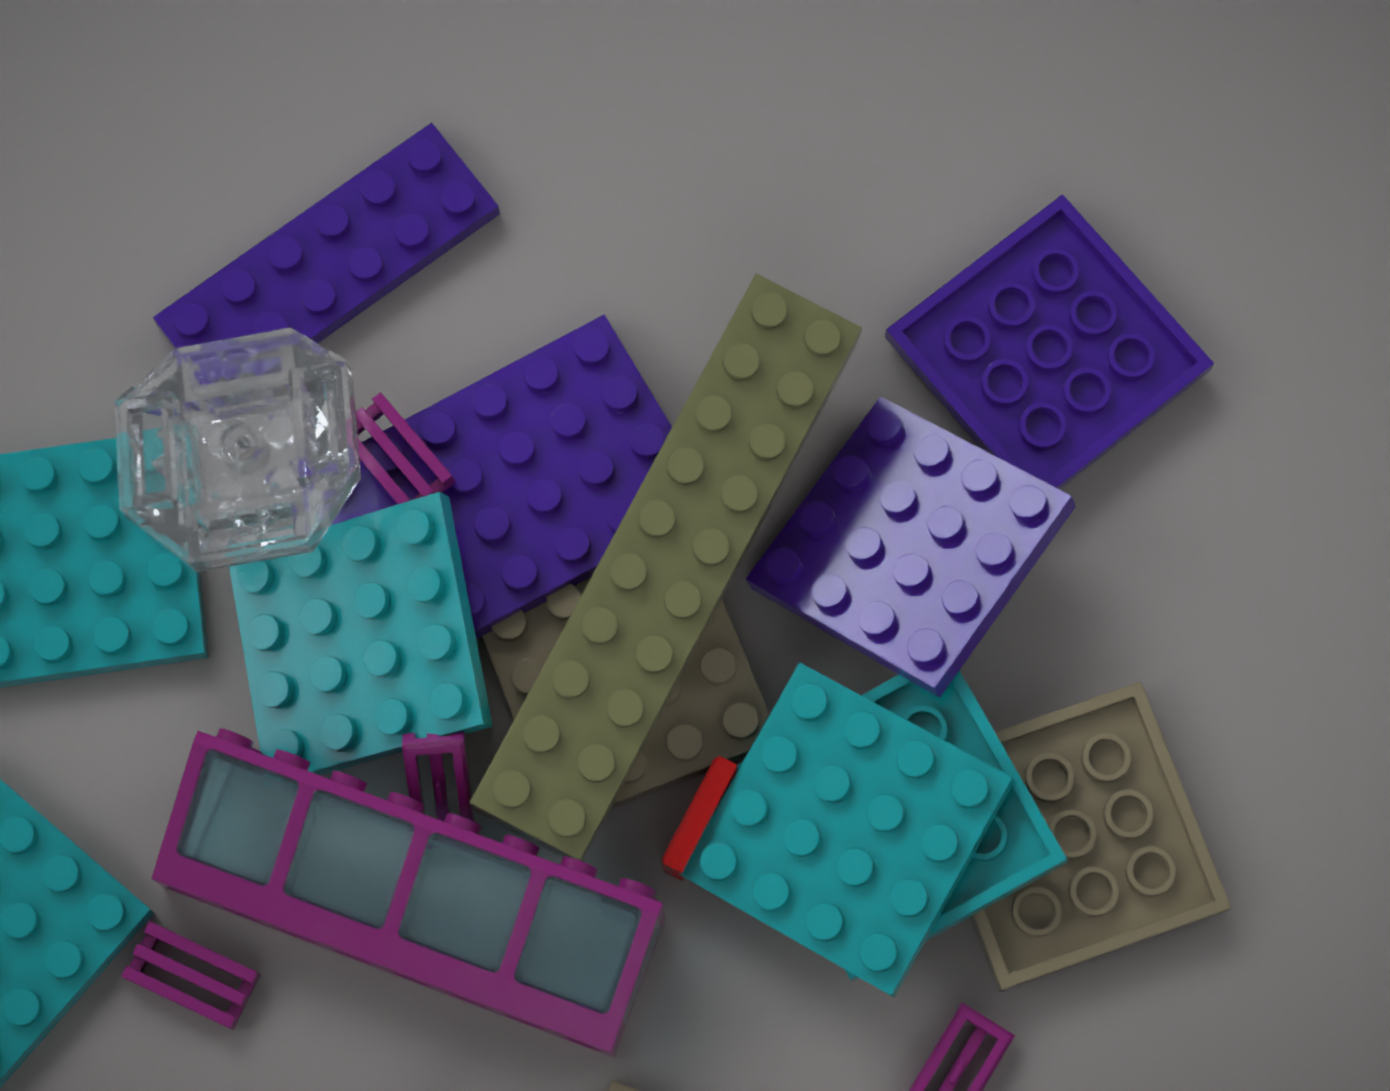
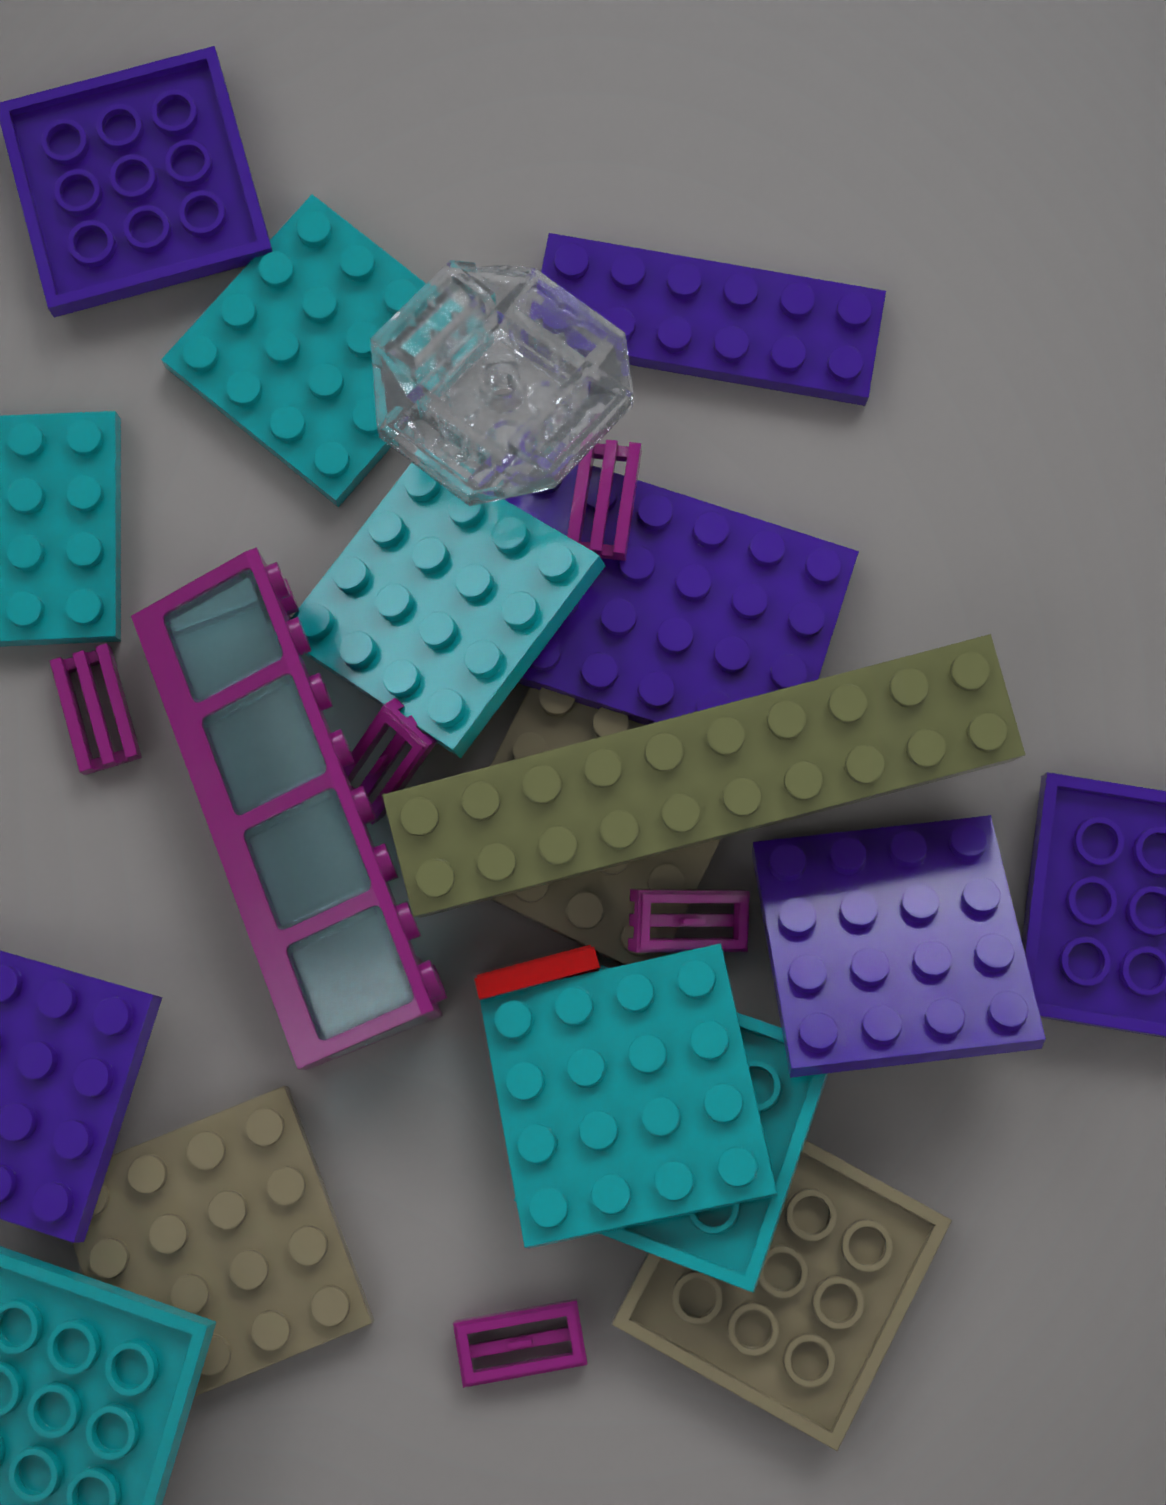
camera: 45 degrees right, 5 degrees up
(731, 702) = (643, 919): none -> magenta tile

